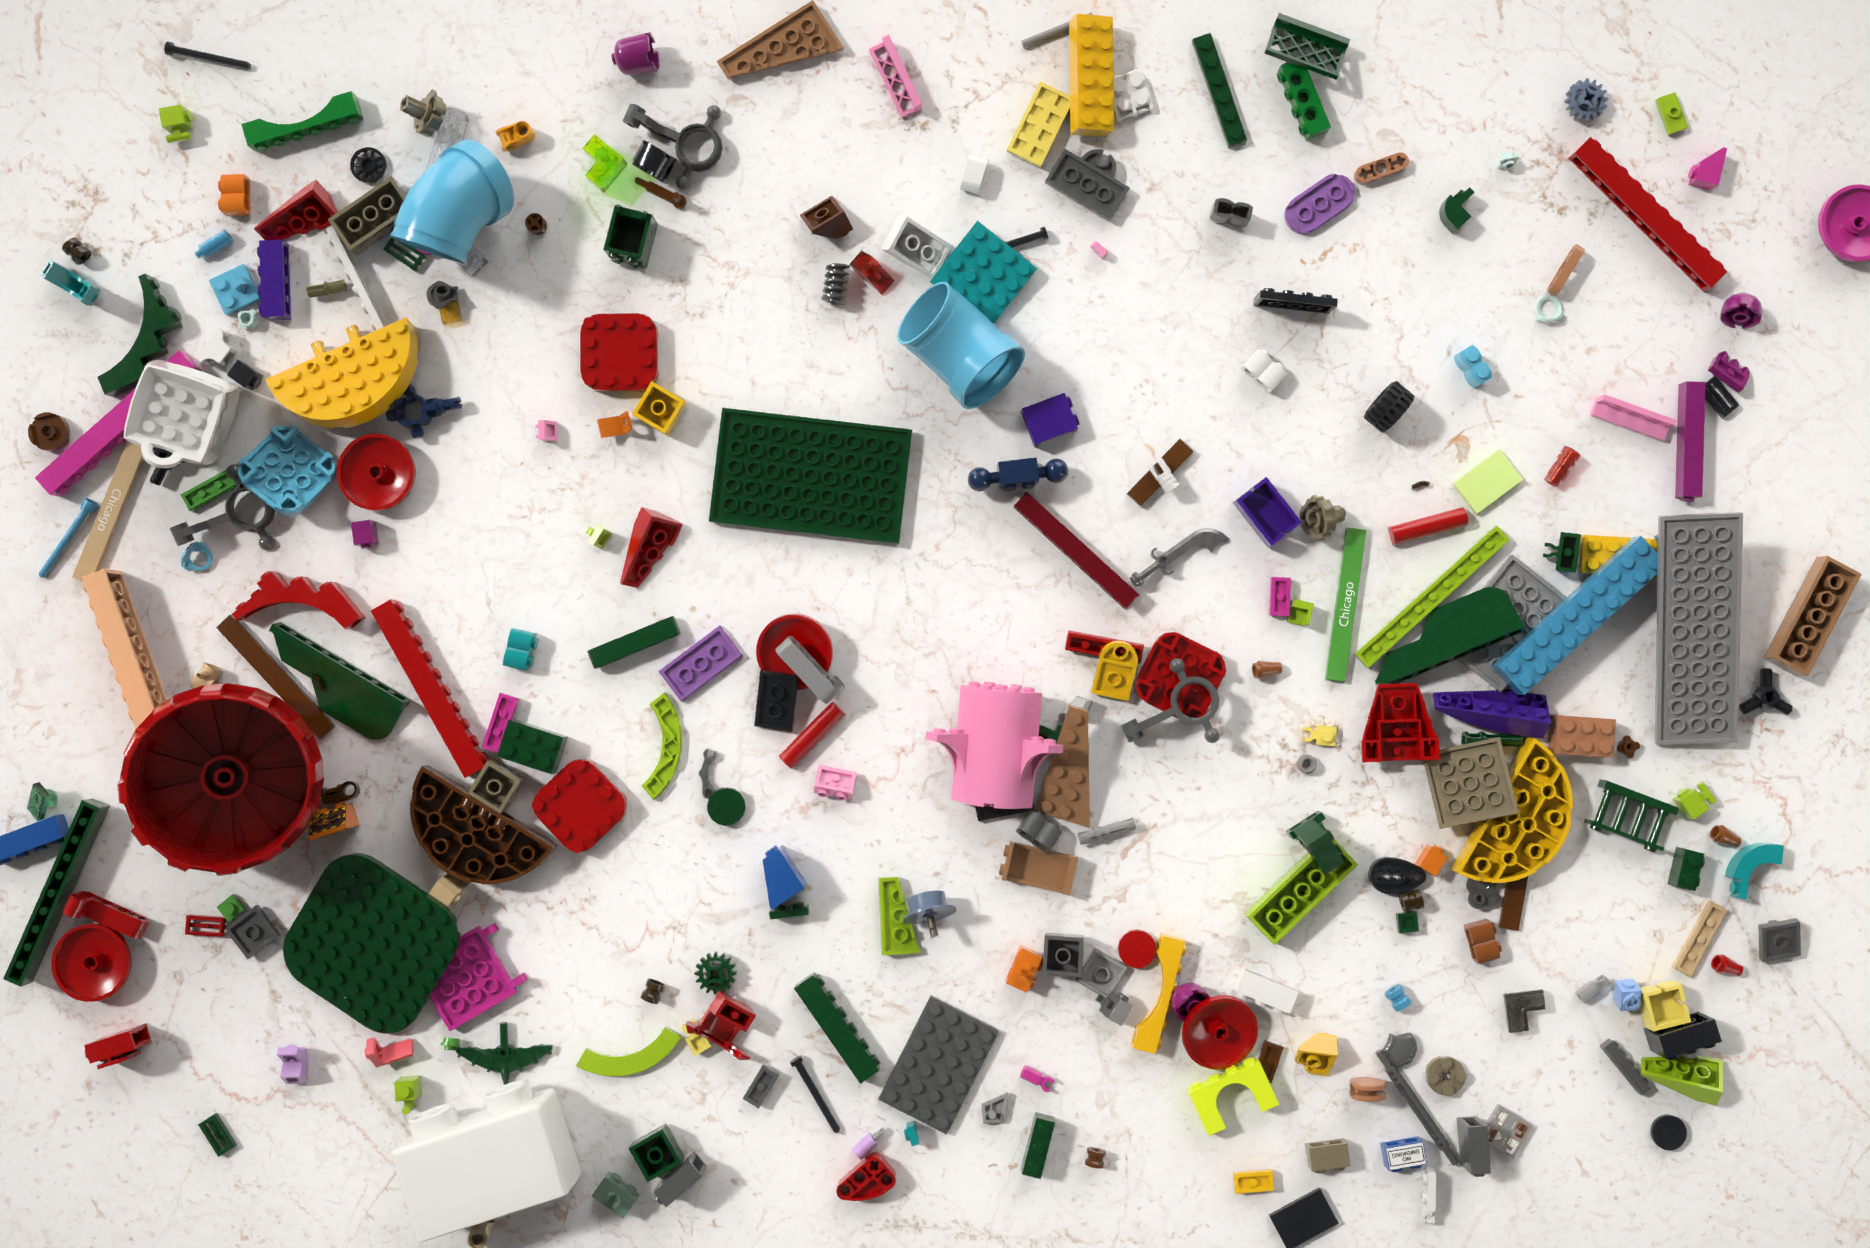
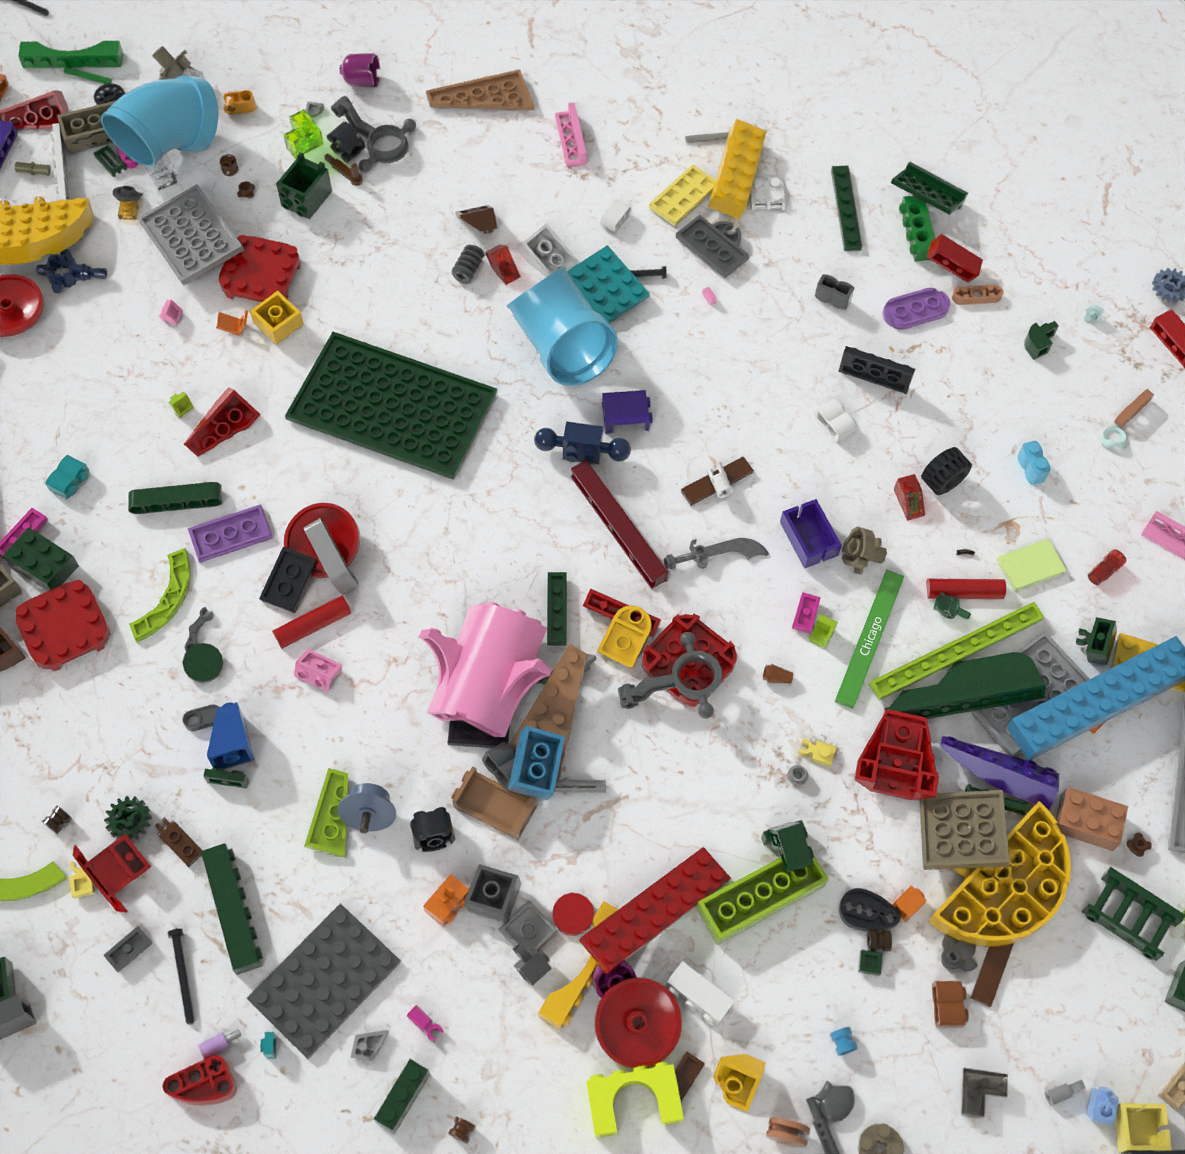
camera: 10 degrees right, 25 degrees down
(332, 143) = (86, 75): none -> green bar
(531, 331) = (190, 234): none -> light grey plate
(561, 247) = (246, 189): none -> reddish brown plate
(599, 119) = (314, 109): none -> light grey tile
(748, 855) = (205, 716): none -> dark grey piece
(767, 978) = (179, 842): none -> reddish brown hinge
(992, 912) = (432, 830): none -> black brick
(1040, 657) = (557, 609): none -> dark green plate
(1070, 830) = (536, 763): none -> dark azure brick
(1211, 932) = (654, 910): none -> red plate
(1351, 134) = (954, 258): none -> red brick
(1356, 440) = (910, 496): none -> clear red slope
(1416, 552) = (950, 607): none -> clear green piece

